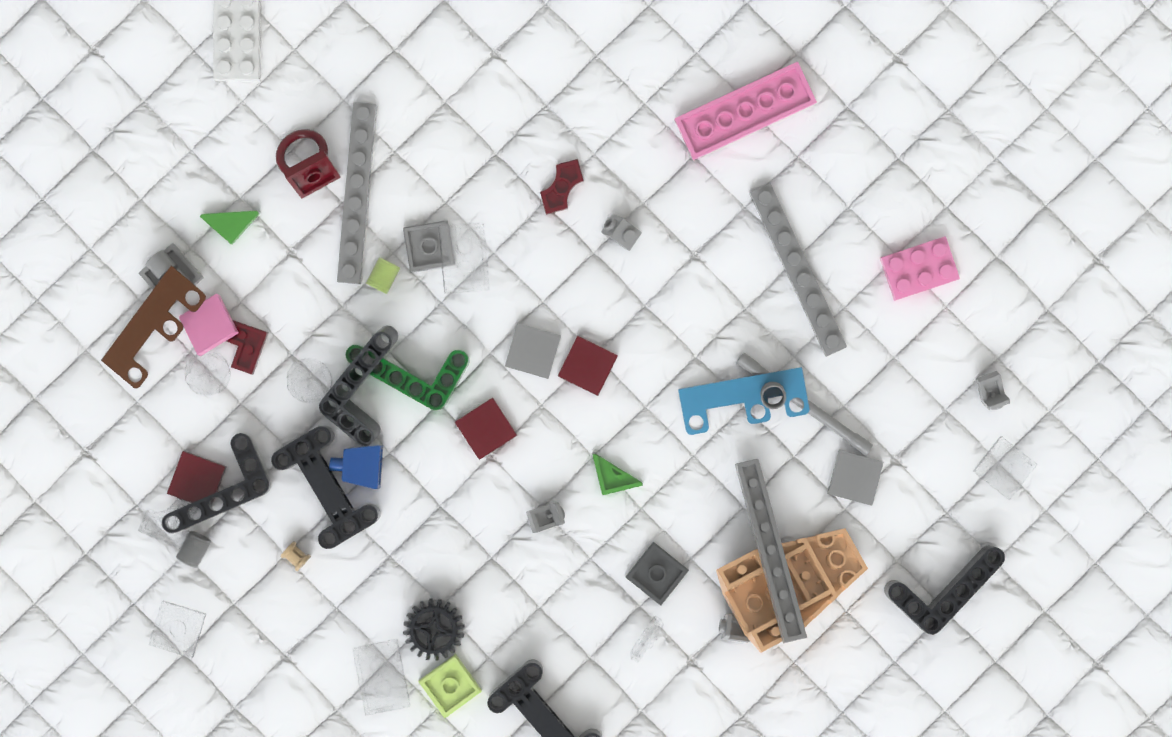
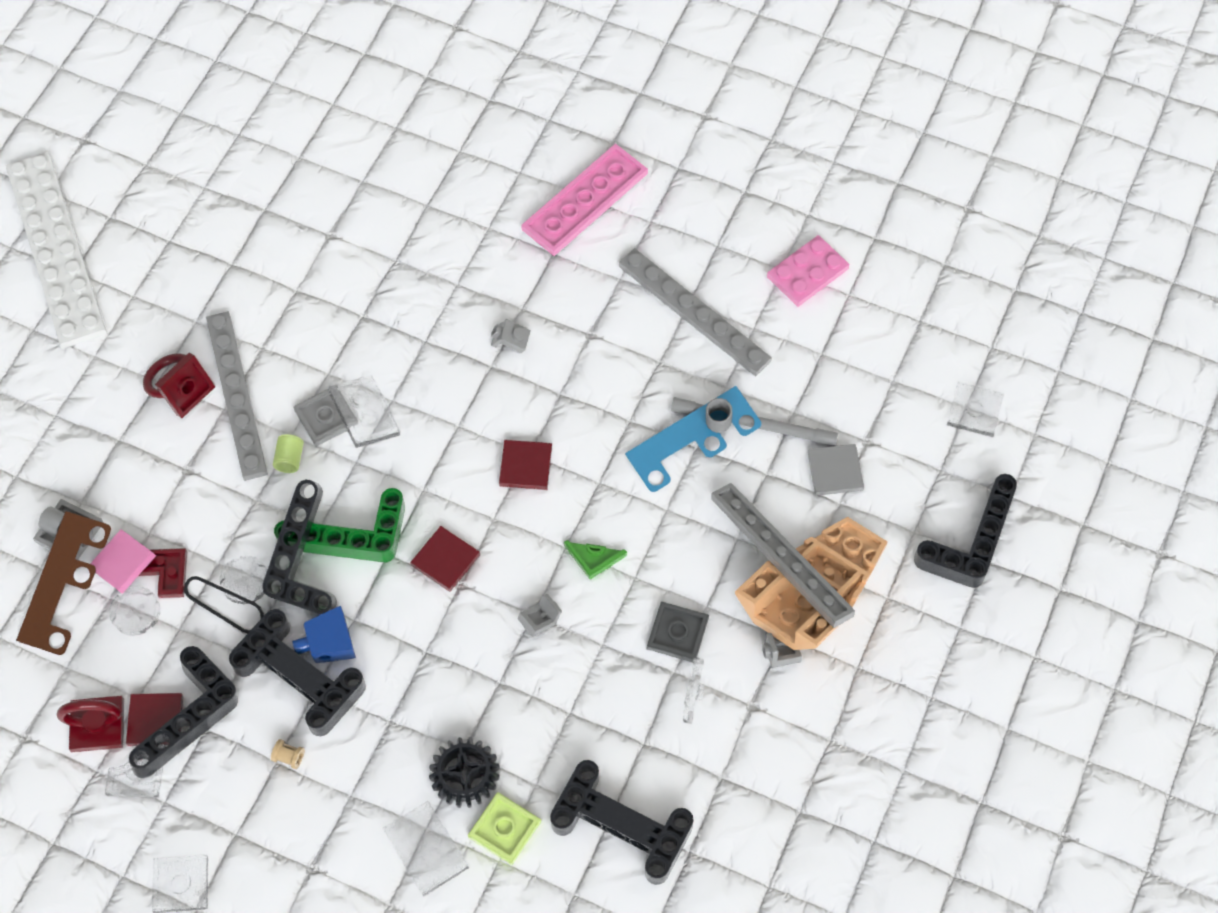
camera: 15 degrees left, 25 degrees down
(146, 464) = (94, 723): none -> dark red tile
(193, 549) = (172, 787): light grey piece -> none
(230, 224) = (115, 465): bright green tile -> none
(291, 391) = (226, 591): none -> black piece
(532, 351) = (465, 471): light grey tile -> none
(567, 177) = (435, 330): dark red tile -> none
(992, 391) = (927, 344): light grey bracket -> none

